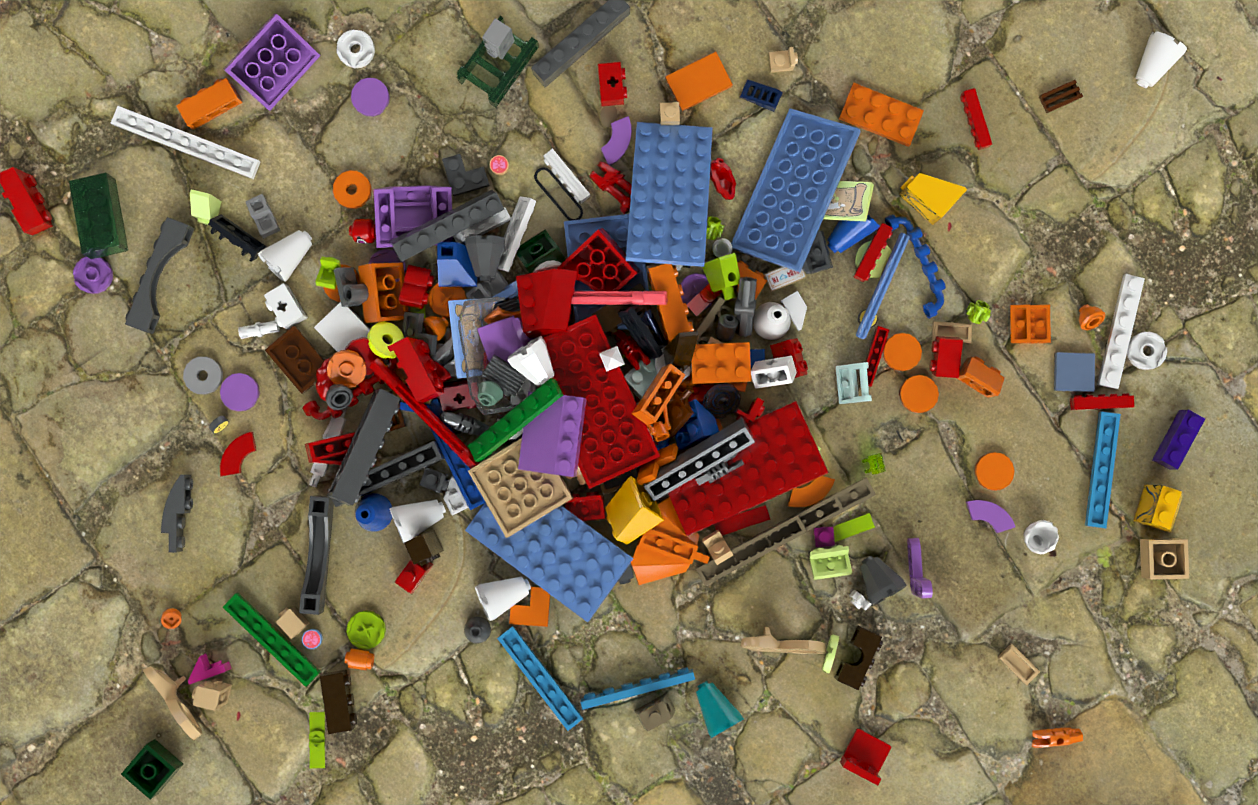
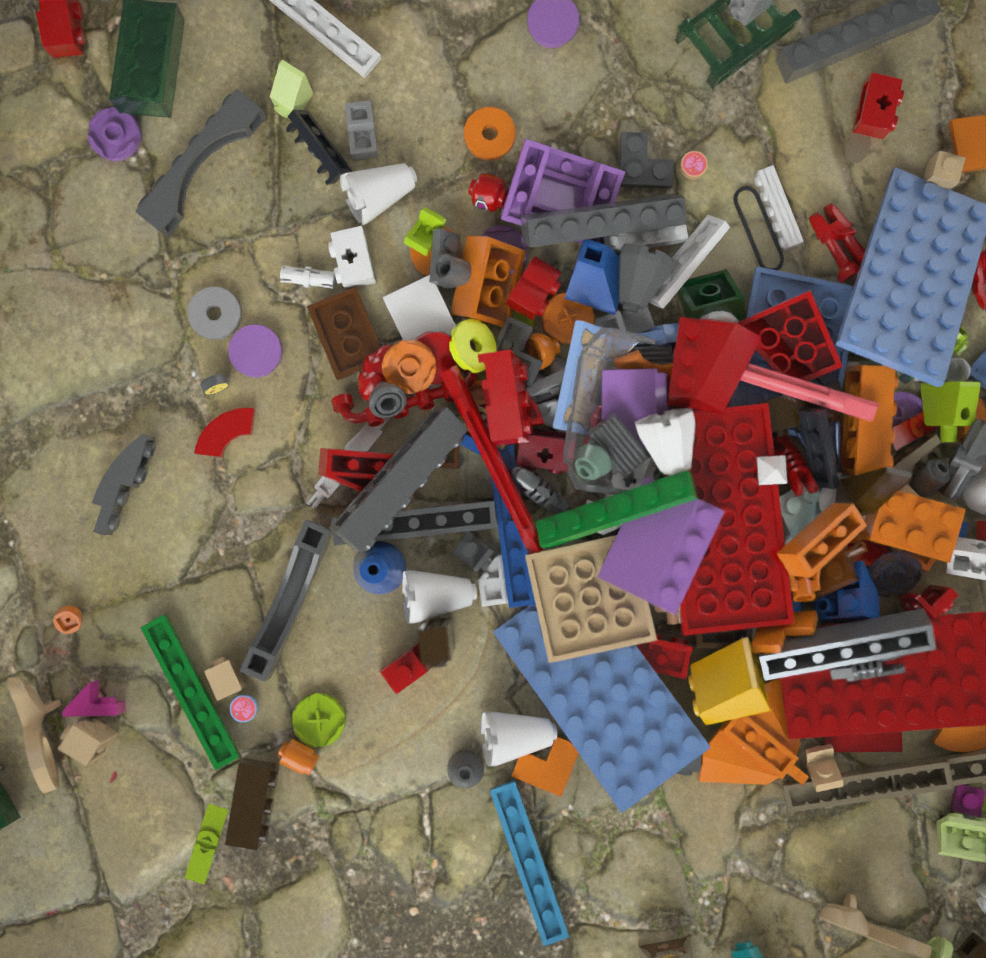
camera: 20 degrees right, 0 degrees up
(619, 141) = (862, 185): medium lavender tile -> none
(628, 689) = (665, 921): dark azure plate -> none

